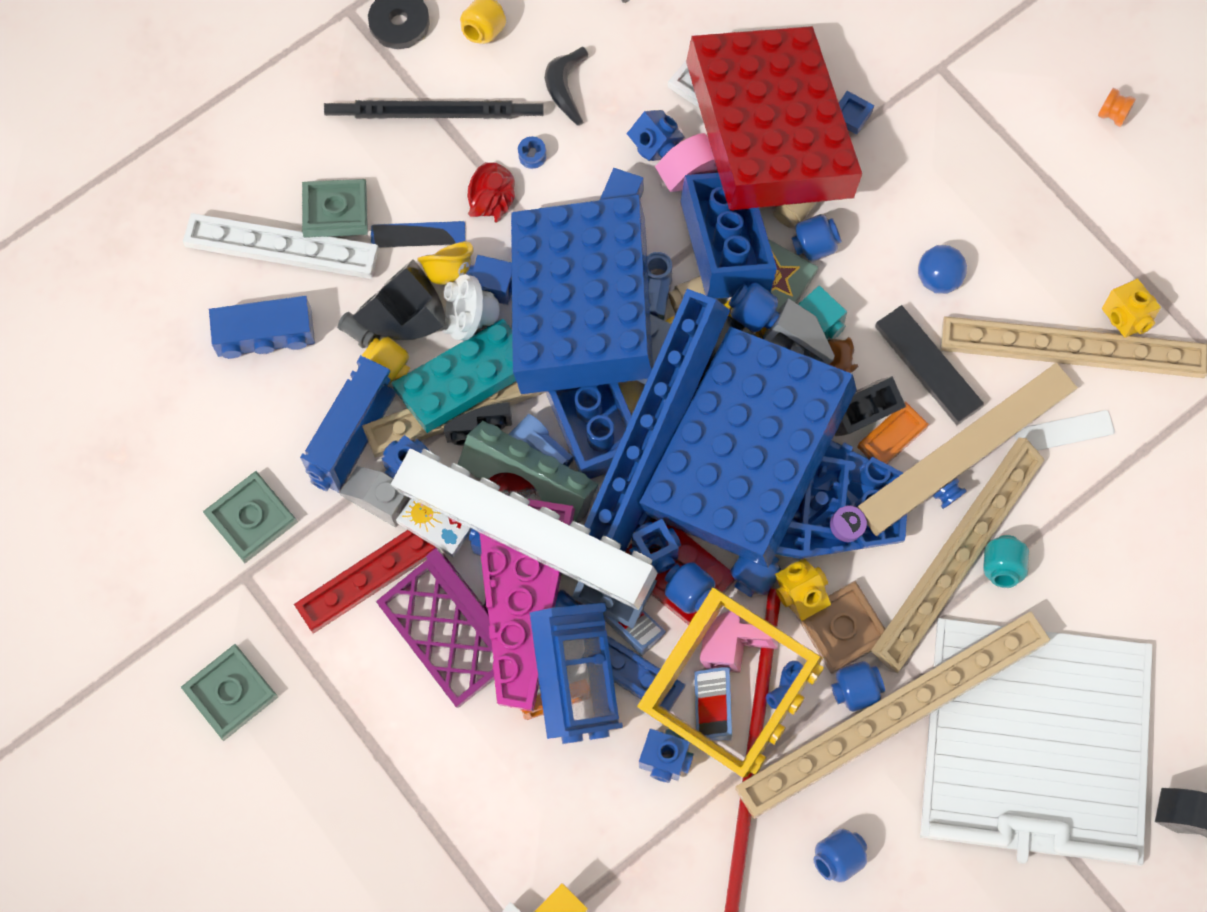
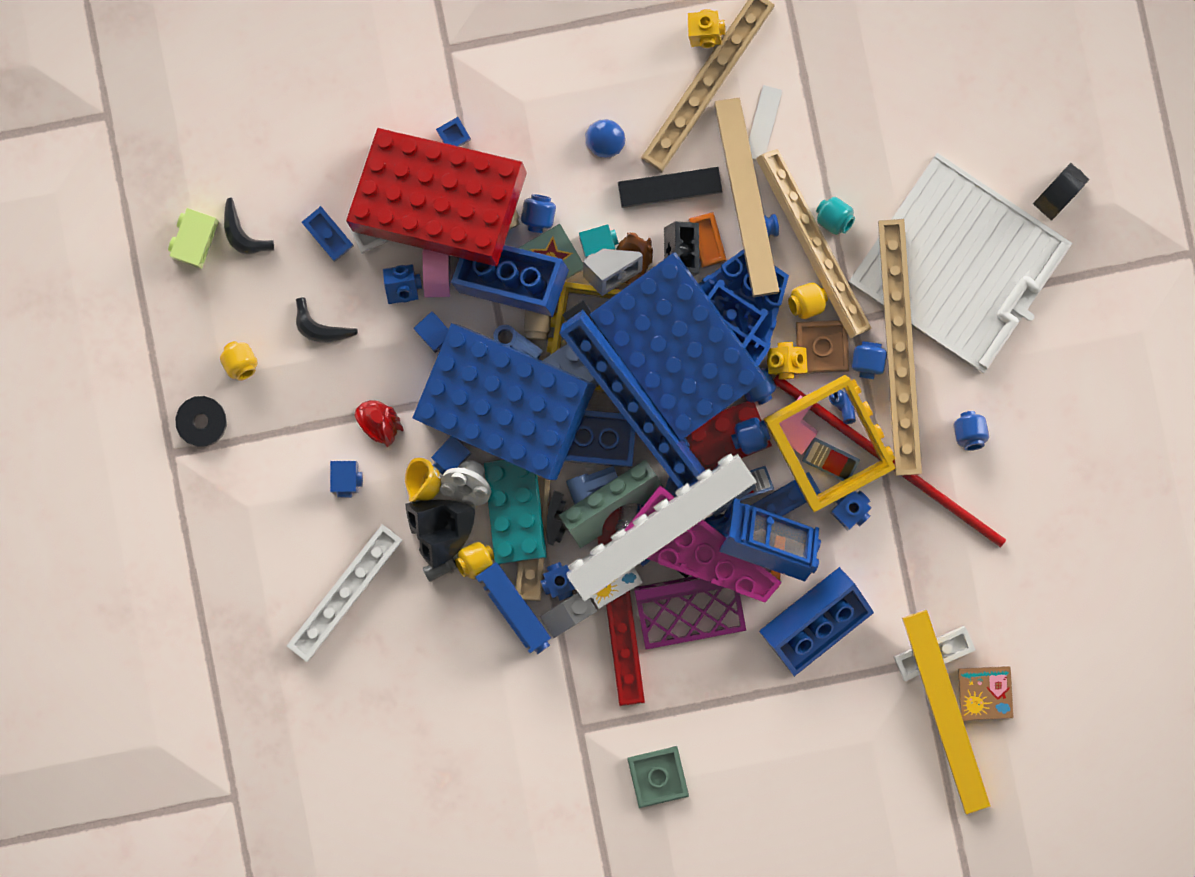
camera: 65 degrees left, 15 degrees up
(250, 516) = (539, 707): sand green tile -> none
(261, 327) = (403, 635): blue brick -> none
(334, 208) = (335, 540): sand green tile -> none
(409, 183) = (345, 478): none -> blue brick
(417, 234) = (383, 490): black sticker -> none
(433, 109) = (290, 431): black axle -> none
(507, 784) = (817, 621): none -> blue slope
(524, 148) = (370, 375): blue bush -> none
(657, 536) = (712, 433): blue brick -> none
(669, 42) = (327, 234): none -> blue plate
(754, 307) = (578, 288): blue head -> none
(848, 523) = (762, 308): medium lavender tile -> none
(887, 579) = (807, 300): none -> yellow head

